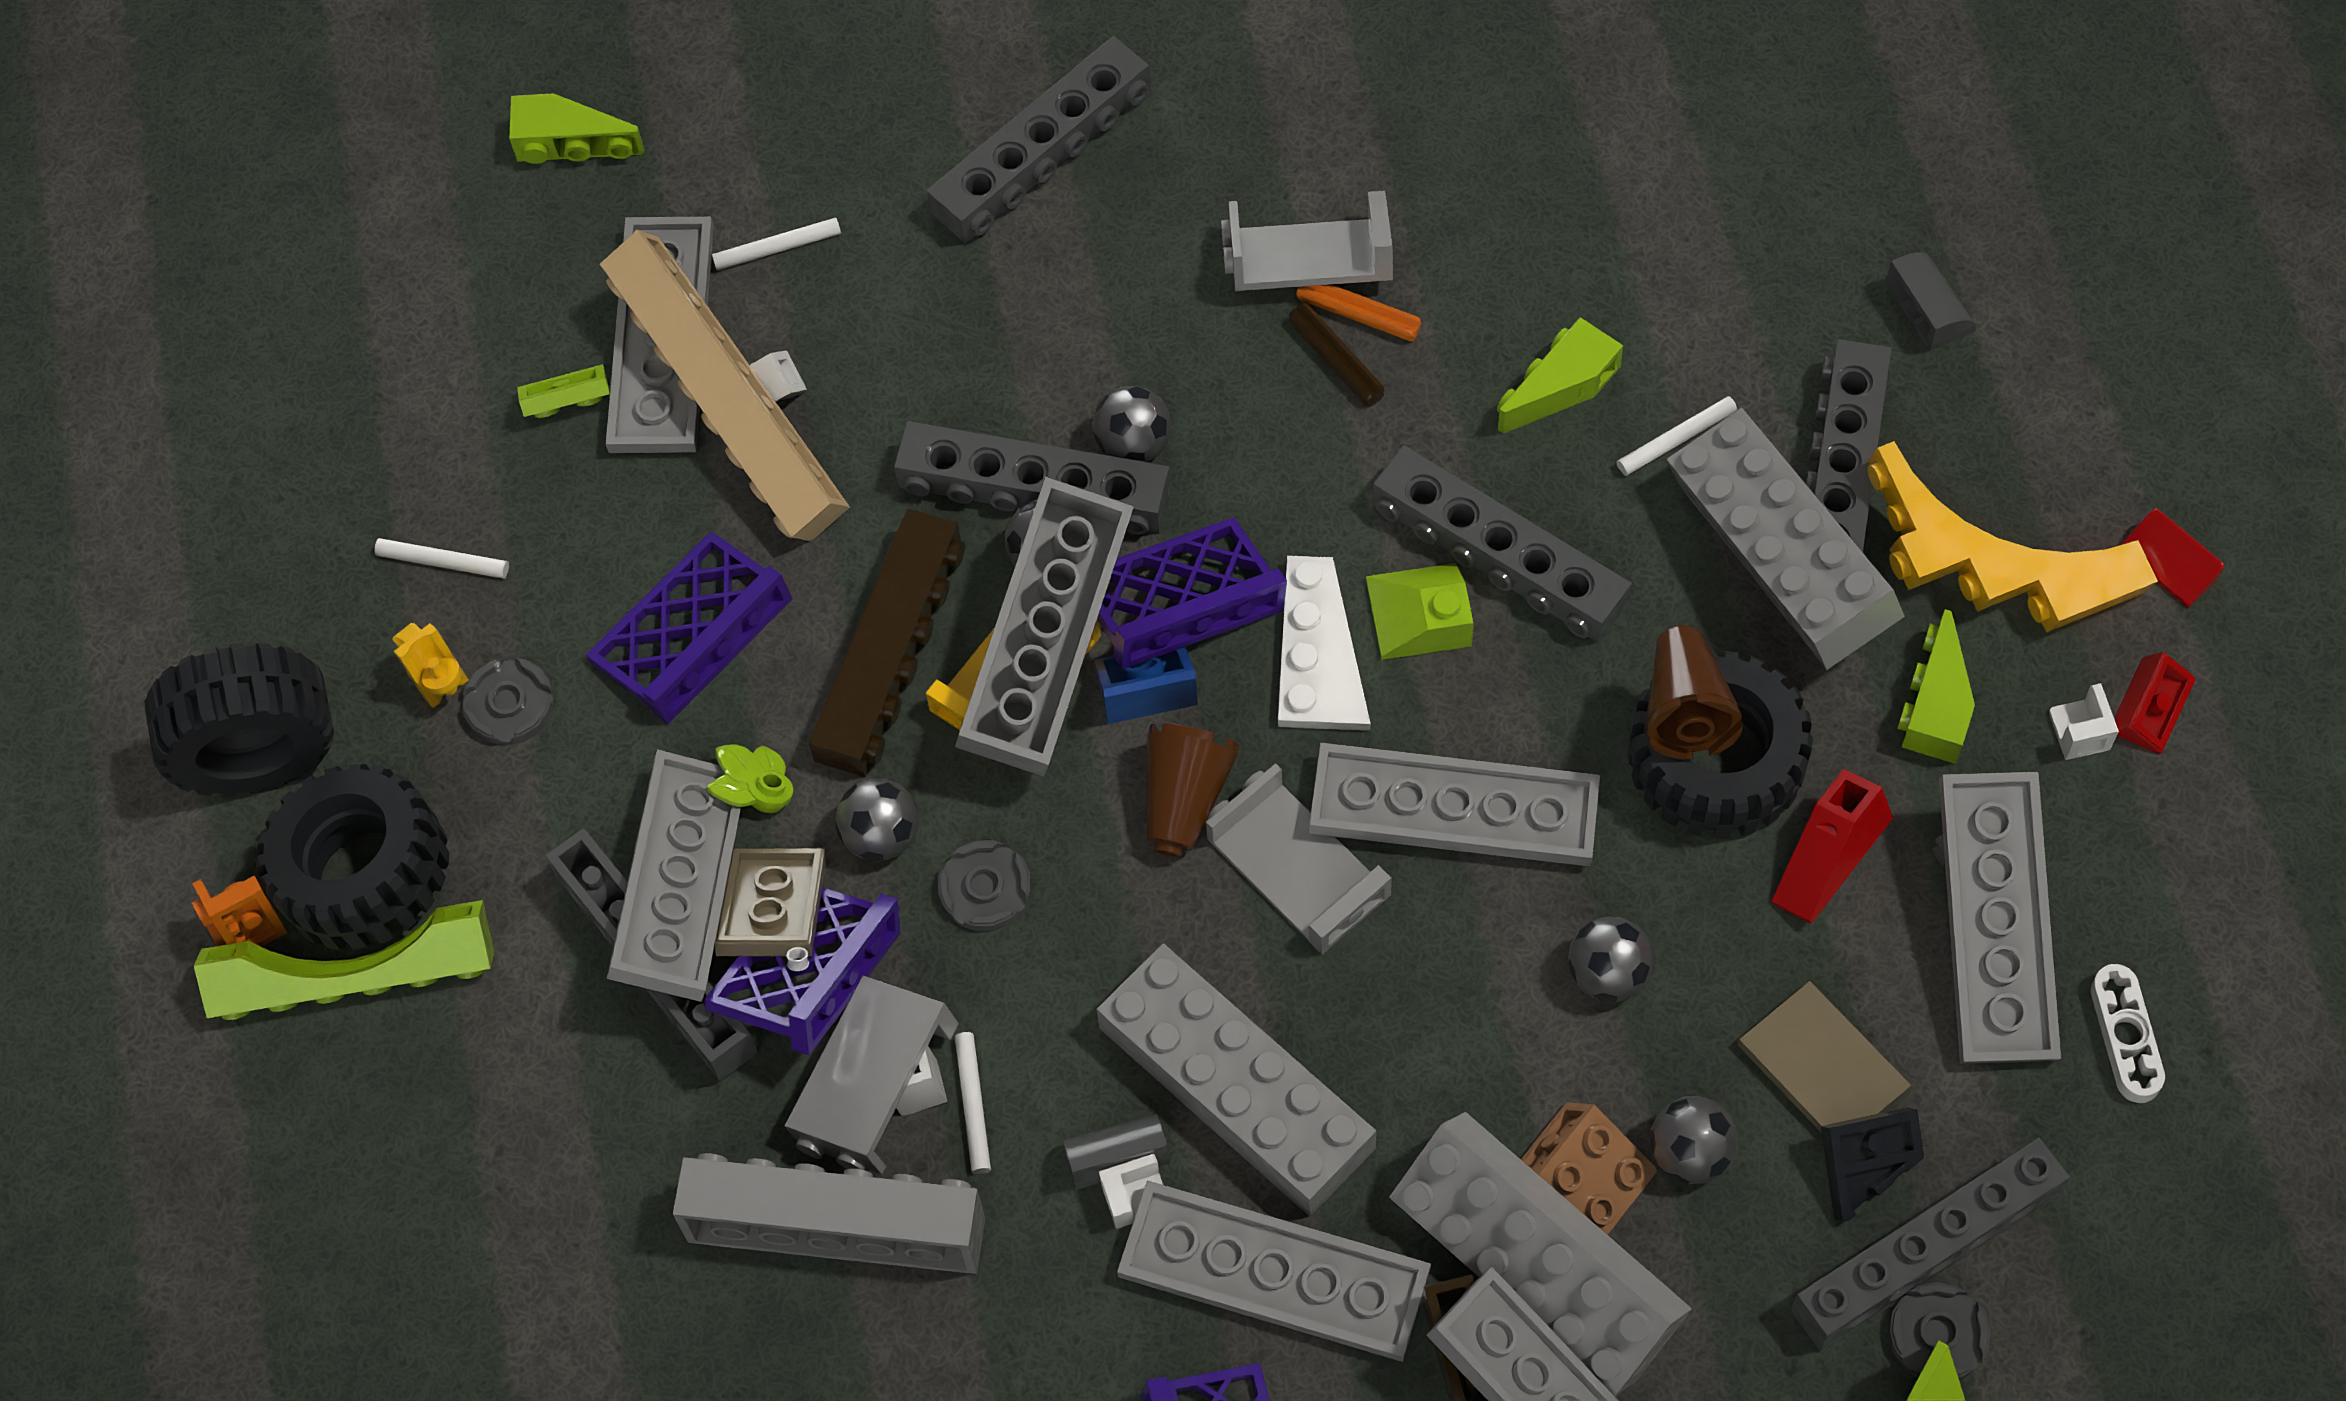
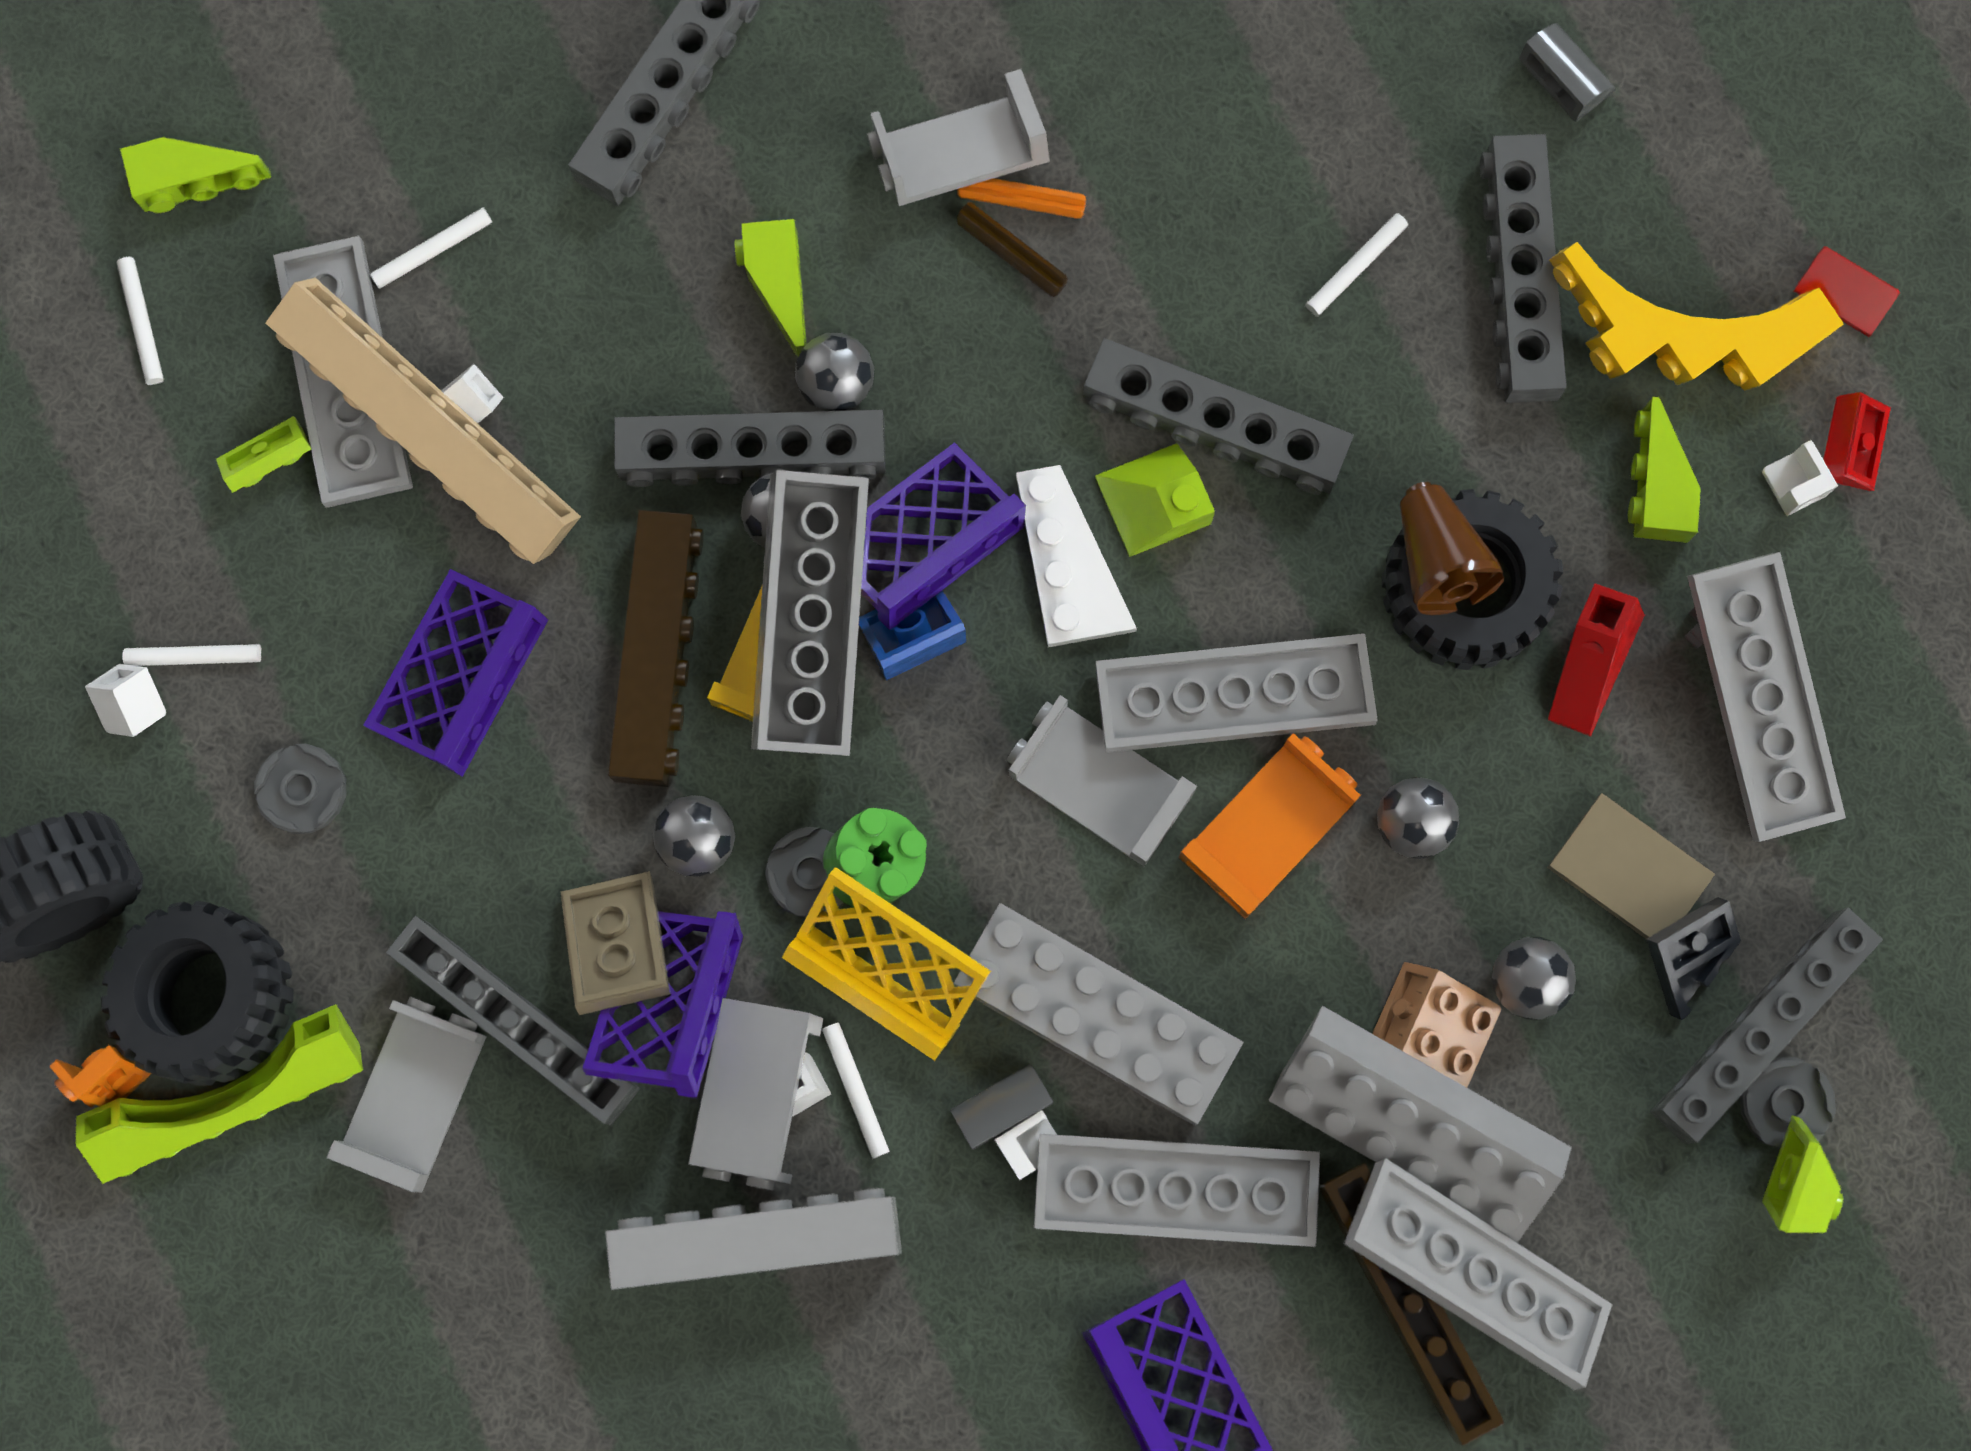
camera: 15 degrees left, 15 degrees up
(367, 583) = (126, 700): none -> white panel
(428, 662) = (213, 774): yellow hips -> none
(483, 253) = (140, 321): none -> white bar
(530, 1008) = (410, 1096): none -> light grey panel
(675, 881) = (520, 944): light grey plate -> none
(751, 778) = (556, 817): lime plate -> none
(797, 965) = (655, 996): white piece -> none
(1016, 1002) = (872, 986): none -> yellow fence
(1049, 878) = (894, 843): none -> bright green brick
(1099, 323) = (773, 268): none -> lime slope
(1183, 783) = (976, 735): reddish brown cone -> none
(1460, 940) = (1271, 825): none -> orange panel
(1569, 374) = (1243, 224): lime slope -> none
(1785, 538) = (1491, 360): light grey brick -> none
(2149, 1063) = (1907, 759): white beam -> none

